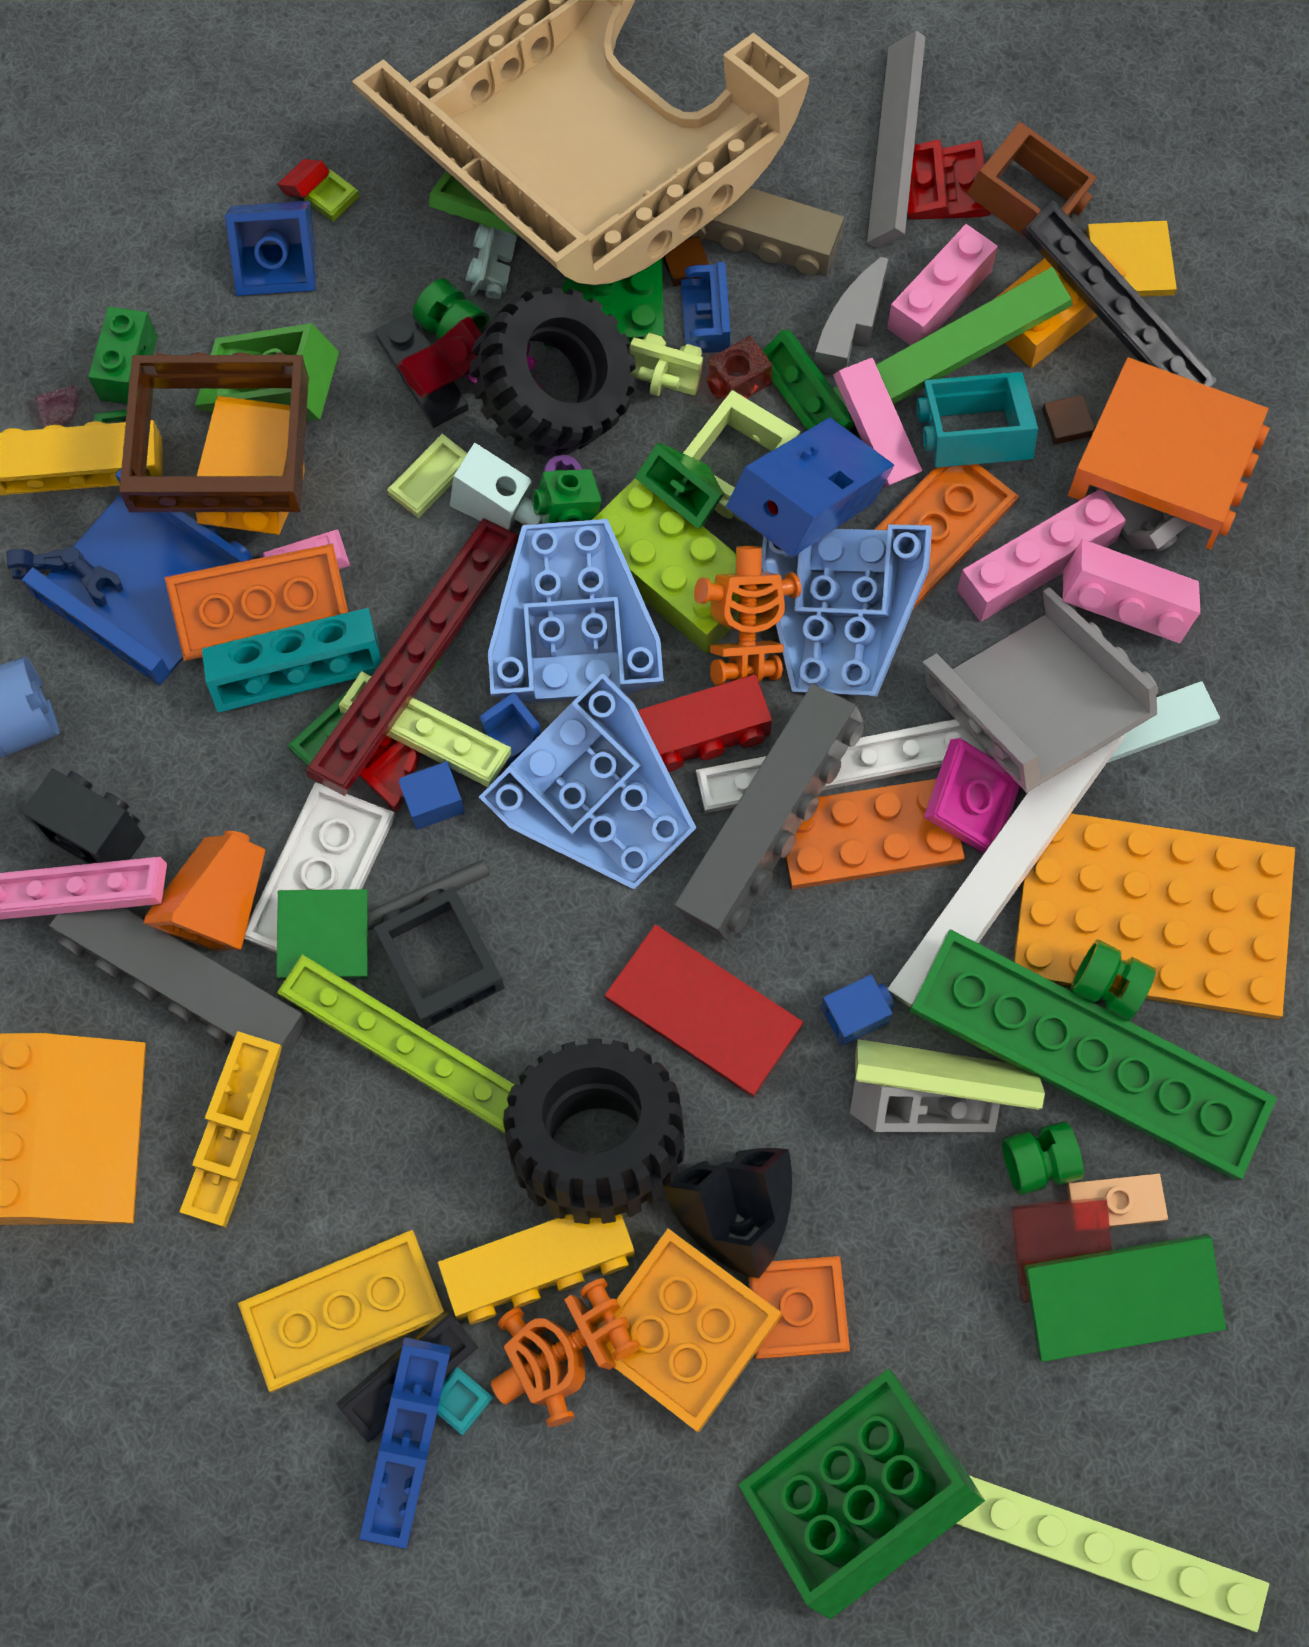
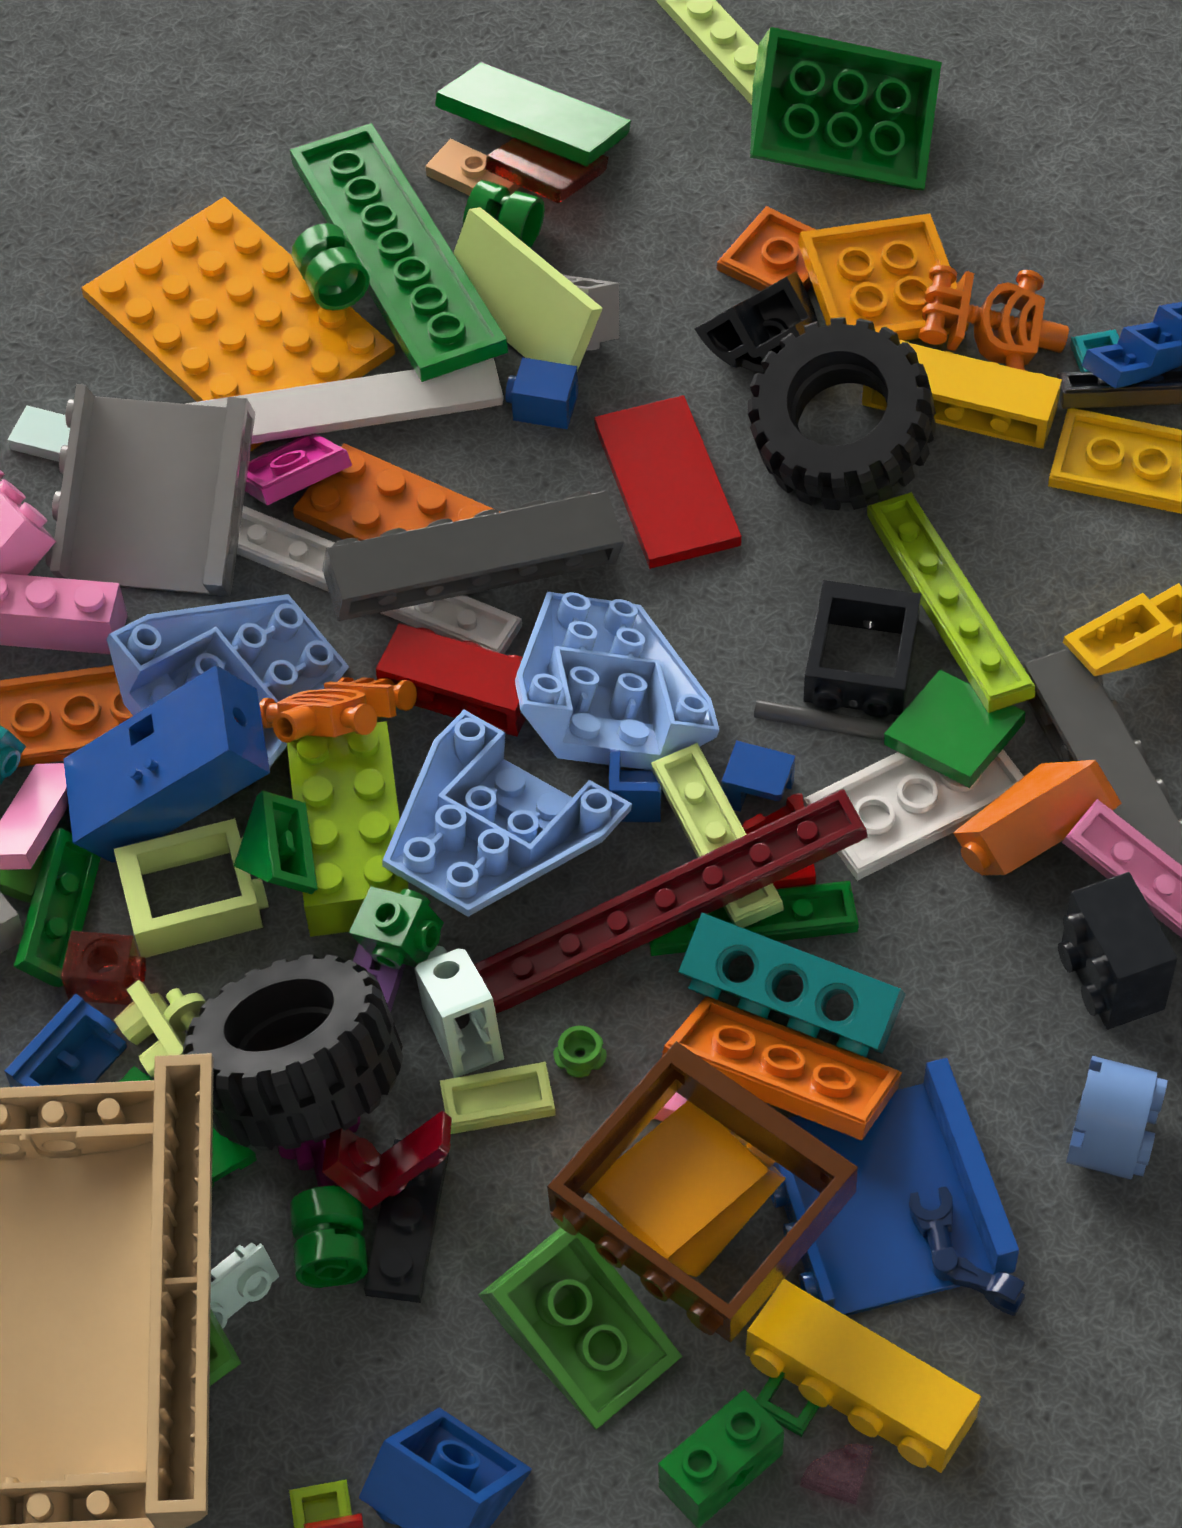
camera: 140 degrees left, 15 degrees down
(397, 526) = (577, 1039): none -> bright green plate

